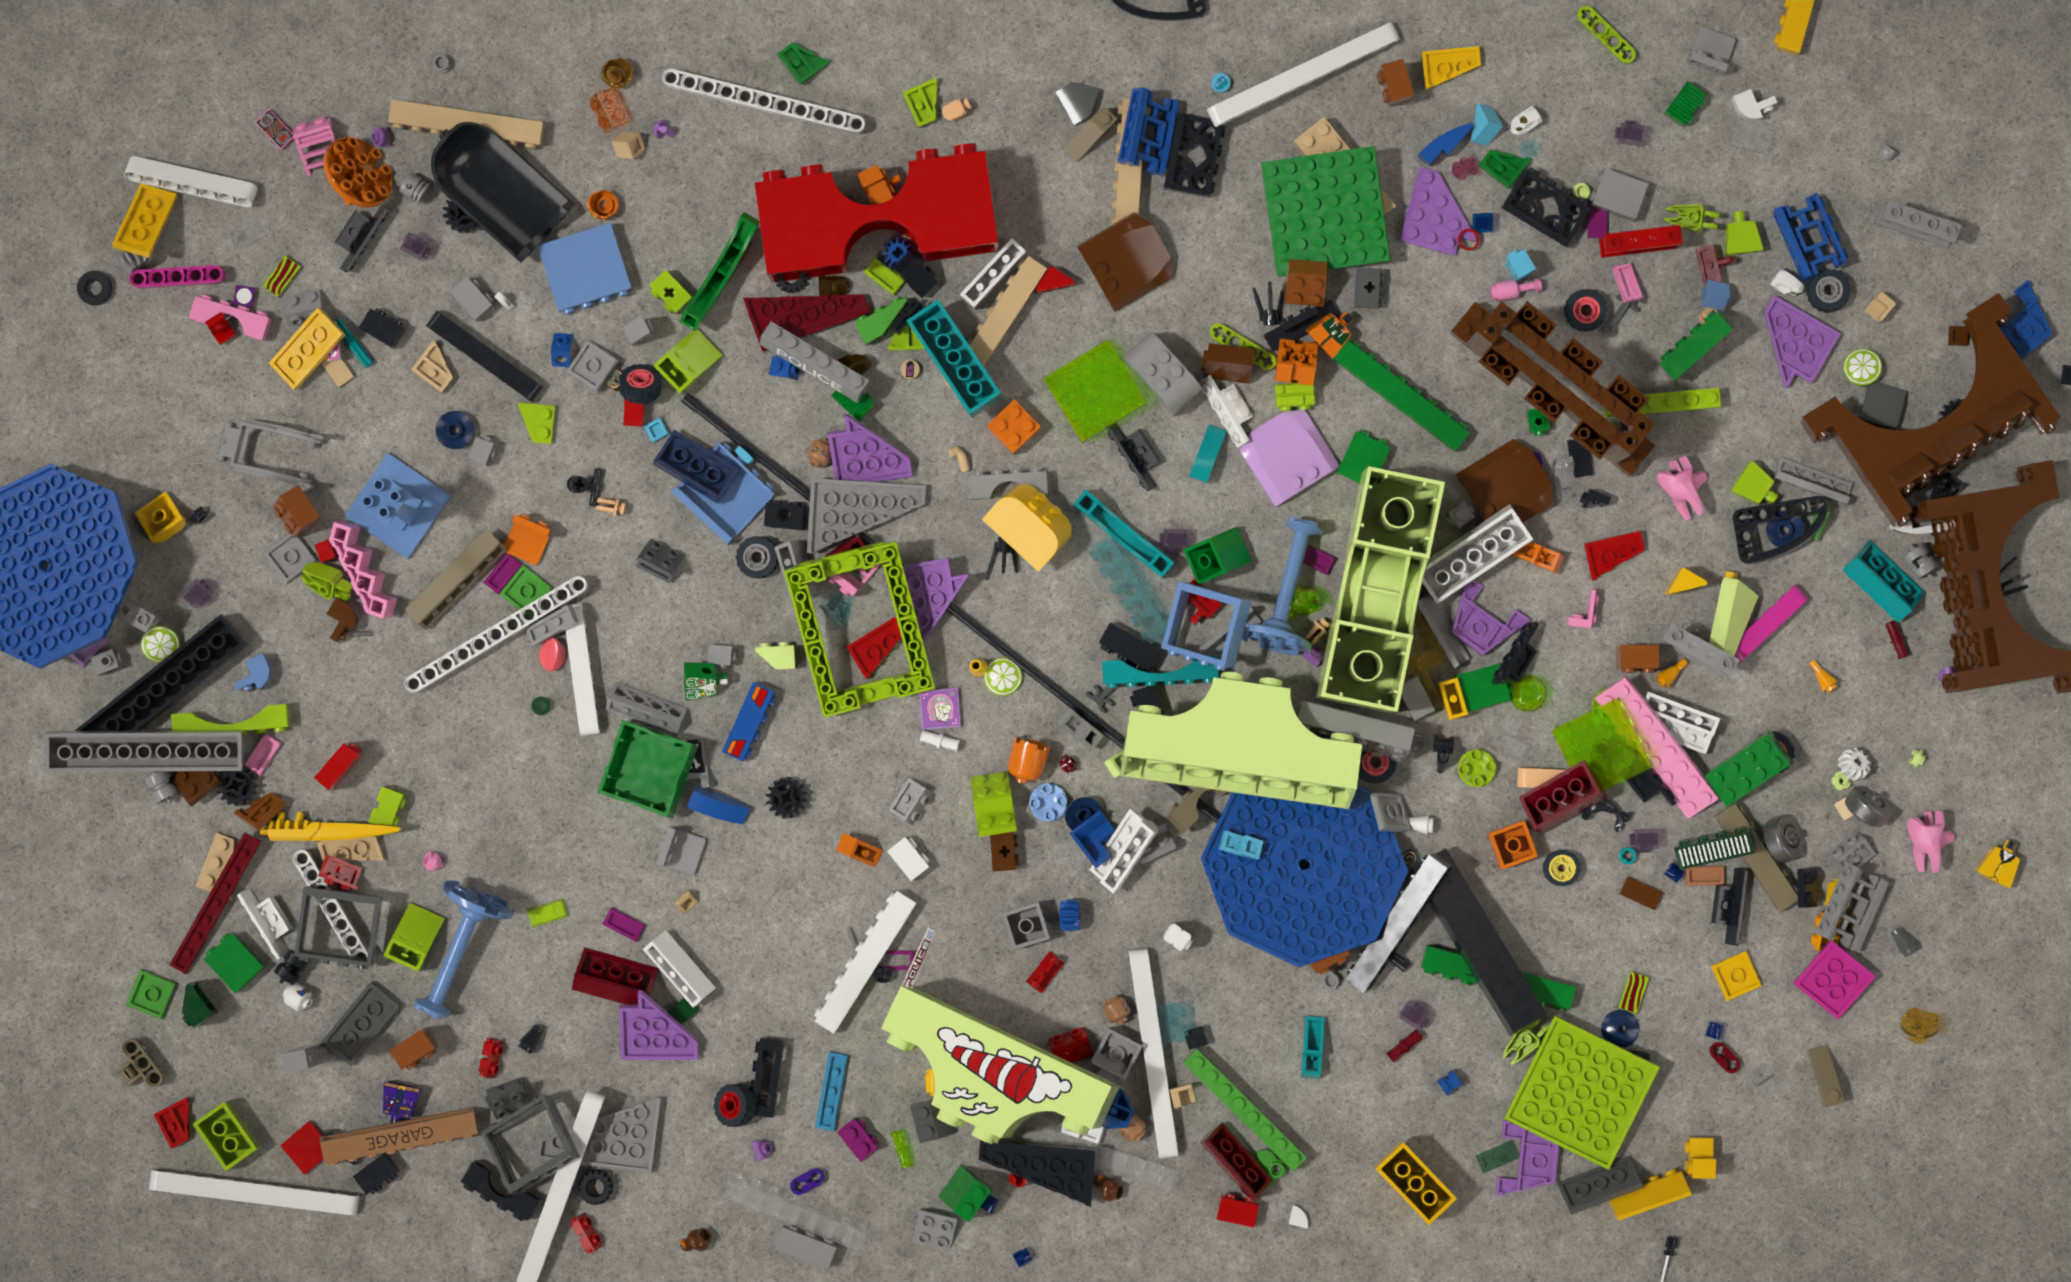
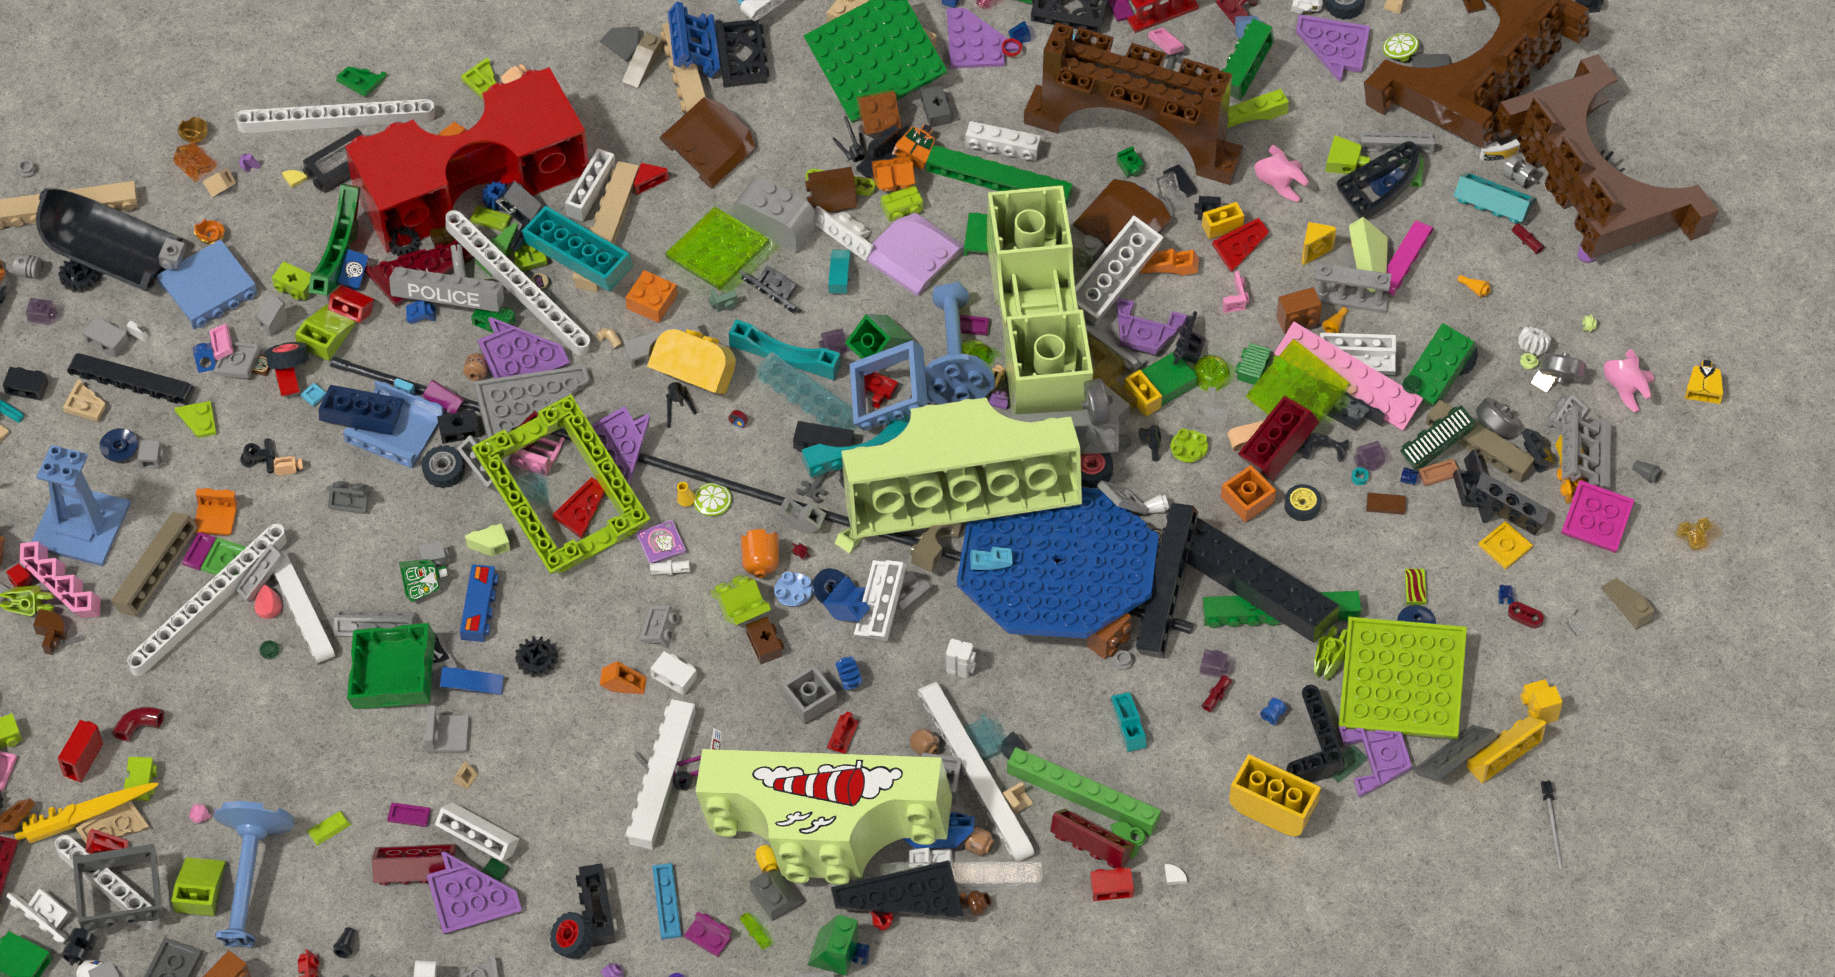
camera: 20 degrees left, 30 degrees down
(400, 742) = (137, 718): none -> dark red cylinder
(556, 232) = (171, 254): none -> light grey brick
(582, 341) = (221, 341): none -> bright pink tile
(704, 162) = (294, 177): none -> light yellow tile
(718, 339) = (350, 304): none -> red brick
(731, 299) = (352, 269): none -> blue slope
(749, 159) = (330, 165): none -> black piece
(778, 479) = (447, 399): none -> magenta tile
(833, 345) = (458, 260): none -> light grey pin
(892, 381) = (520, 290): none -> white beam
(1055, 595) = (738, 418): none -> tile
(1085, 456) = (723, 302): none -> sand green bracket
(1394, 731) = (1097, 402): none -> flat silver wheel
(1419, 354) = (1003, 141): none -> white brick
(1481, 1148) = (1325, 736): none -> black beam
(1572, 698) = (1253, 363): none -> green brick
(1603, 524) = (1222, 220): none -> yellow brick
(1712, 784) = (1411, 384): none -> clear green plate
(1775, 959) = (1508, 503): none -> black brick

